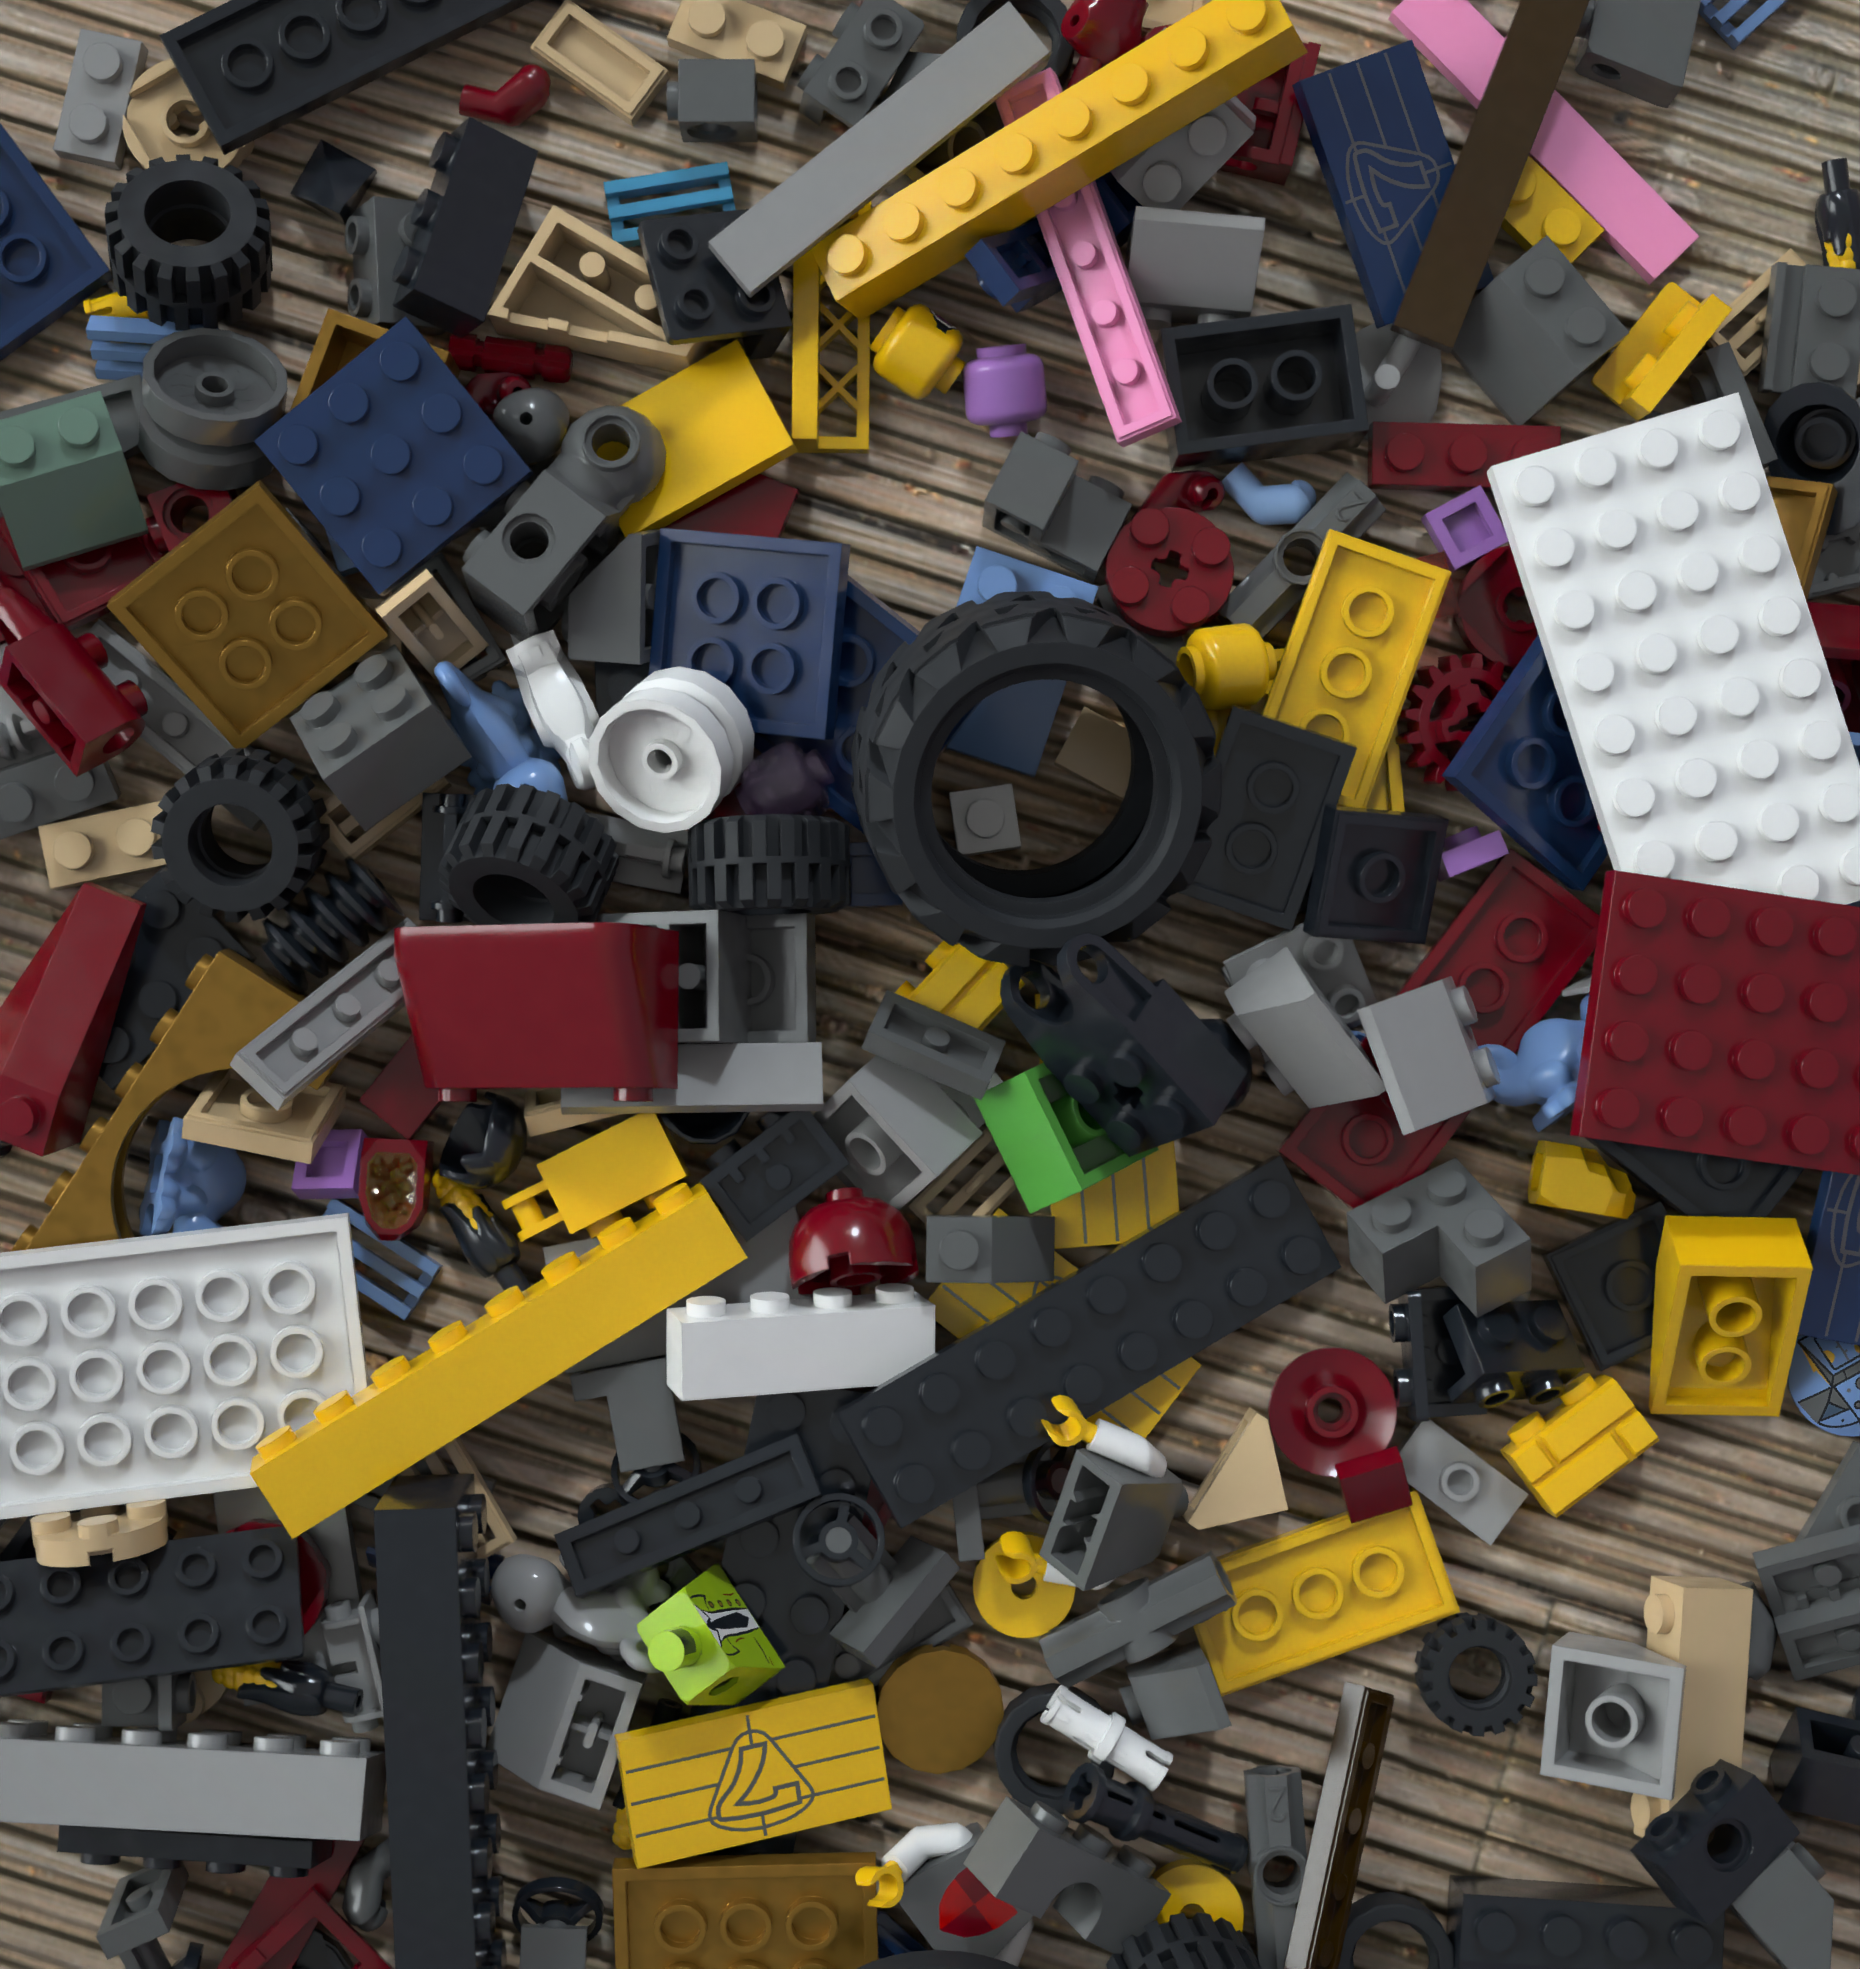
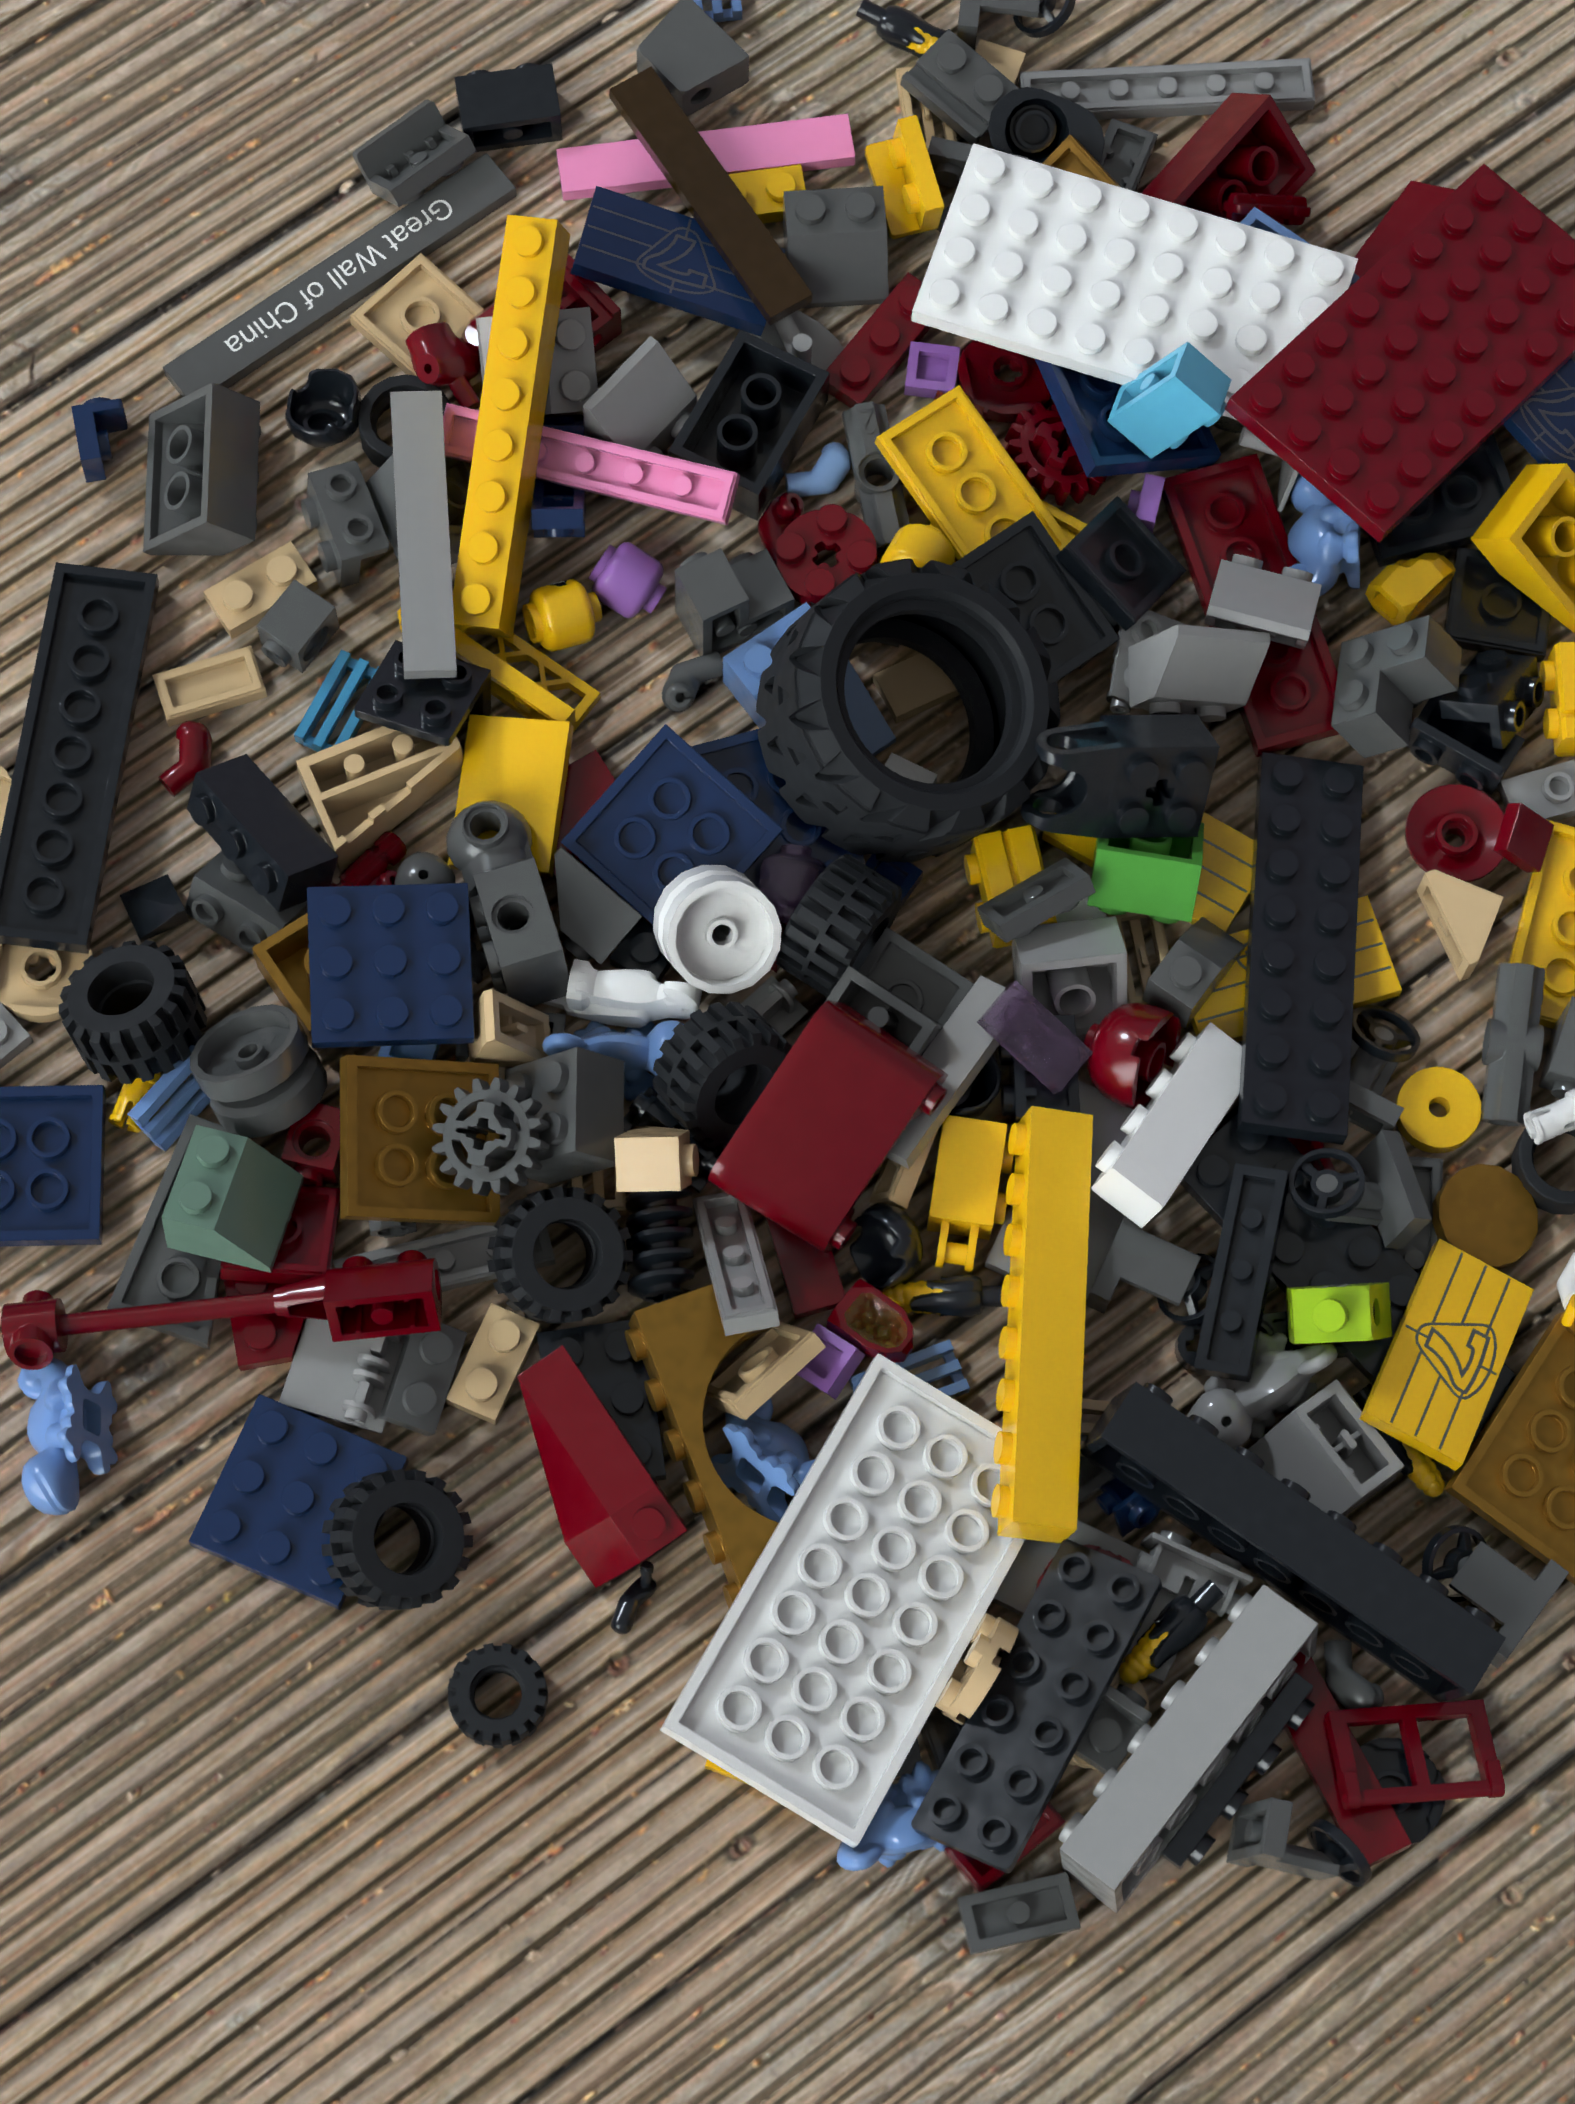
camera: 50 degrees left, 15 degrees down
(285, 686) = (489, 1157): none -> dark grey gear
(384, 858) = (655, 1159): none -> tan slope
(786, 1144) = (1034, 1037): none -> clear purple plate
(943, 524) = (686, 679): none -> dark grey arm
(1108, 1512) = (1427, 1005): dark grey torso -> none
(1581, 805) = (1170, 401): none -> medium azure brick

